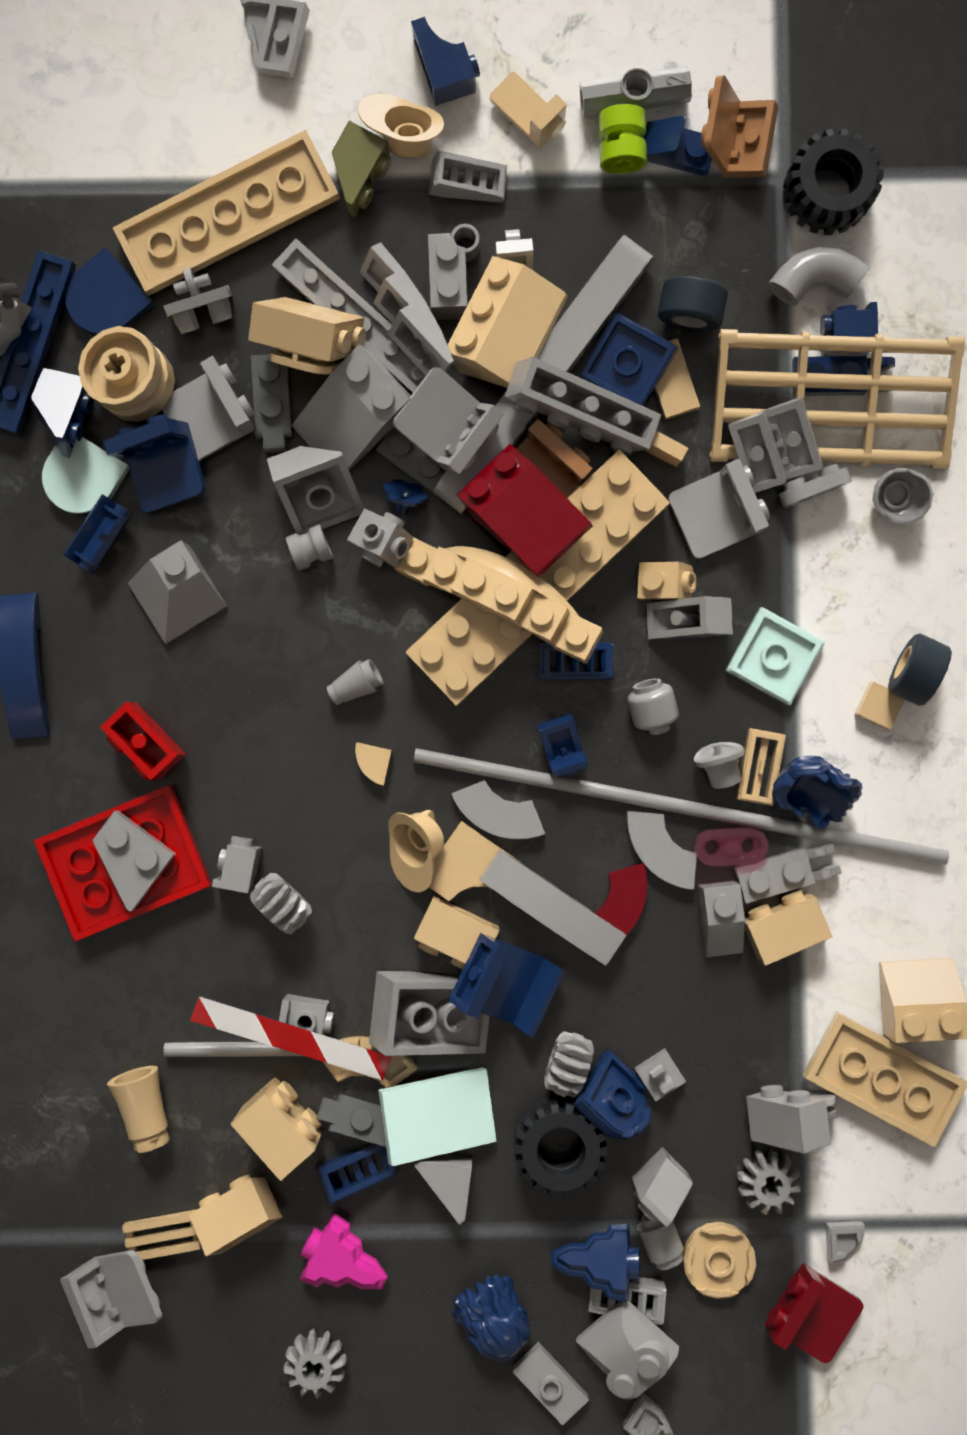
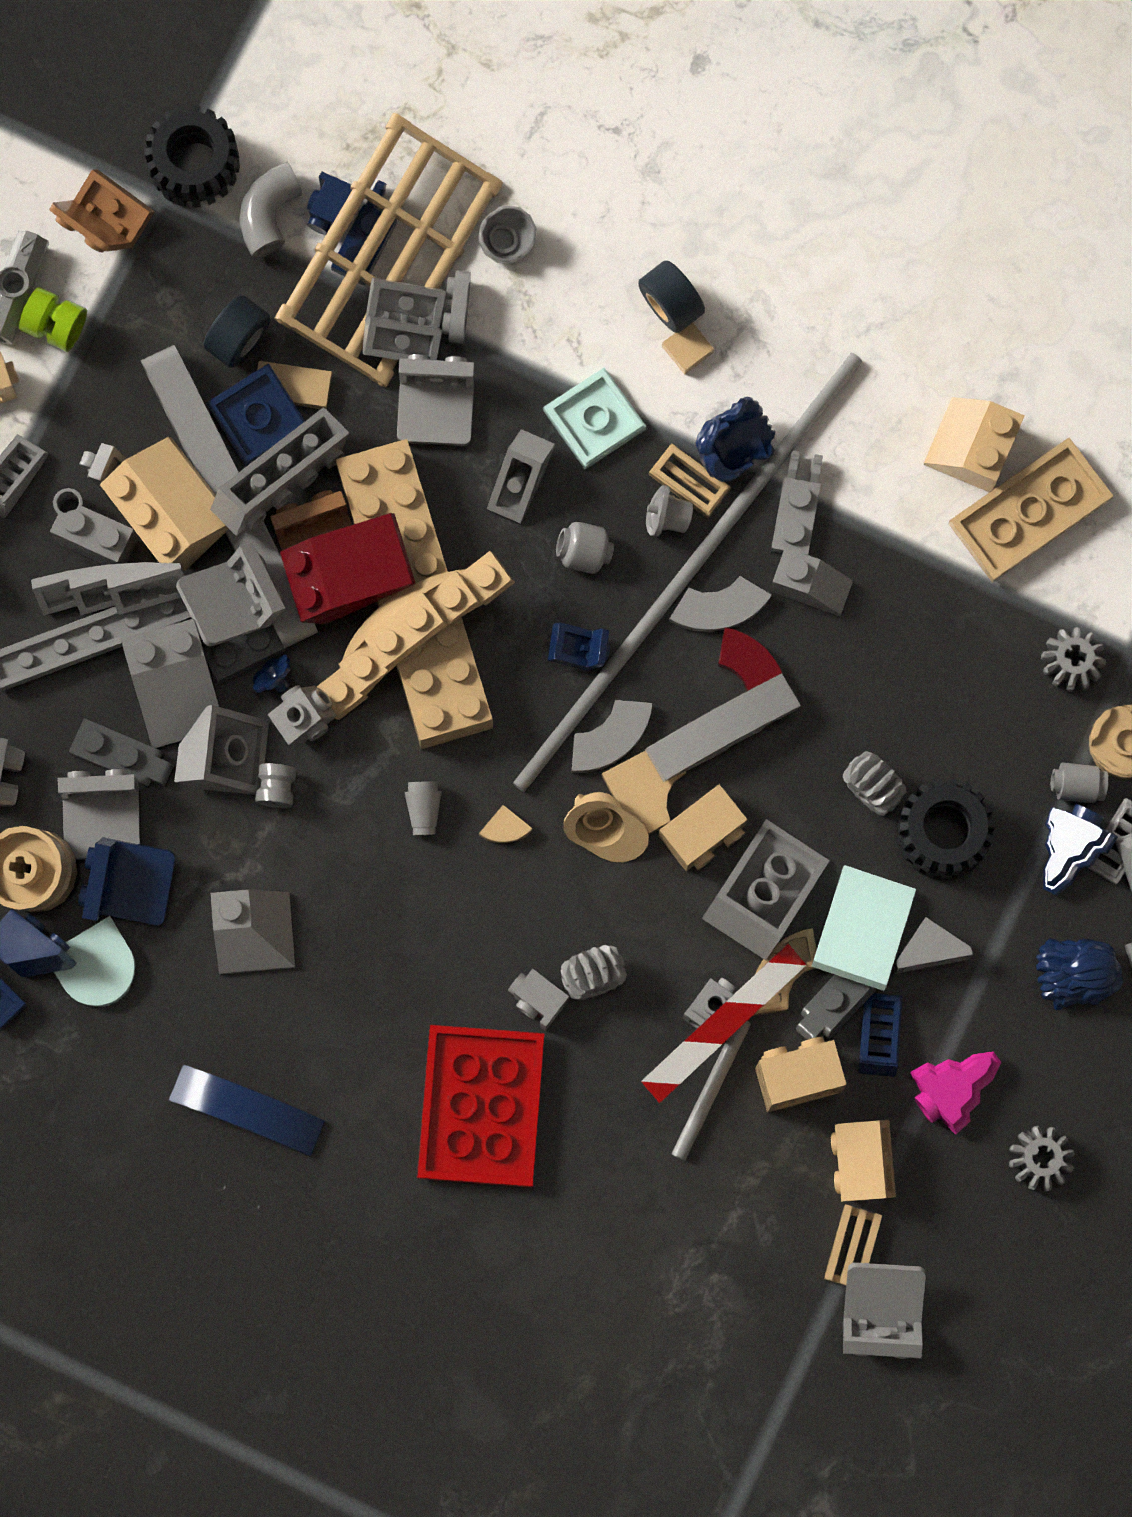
camera: 65 degrees left, 10 degrees down
(97, 533) = (165, 984): dark blue hinge -> none
(131, 857) = (480, 1090): light grey wing -> none
(141, 1107) = (721, 1201): tan plant -> none
(143, 741) = (378, 1025): red brick -> none
(305, 333) = (83, 683): tan brick -> none
(506, 984) = (773, 802): dark blue panel -> none
(606, 664) = (526, 589): dark blue slope -> none
(614, 1099) = (927, 757): dark blue tile -> none
(660, 1074) = (928, 710): light grey tile -> none
(661, 1187) = (1027, 755): light grey slope -> none
(665, 581) = (475, 480): tan bracket -> none
(667, 449) = (357, 418): tan tile -> none
(675, 146) = (83, 275): dark blue slope -> none
(730, 846) = (747, 543): clear pink plate -> none
(786, 927) = (847, 528): tan brick -> none
(791, 1118) = (1020, 608): light grey brick -> none

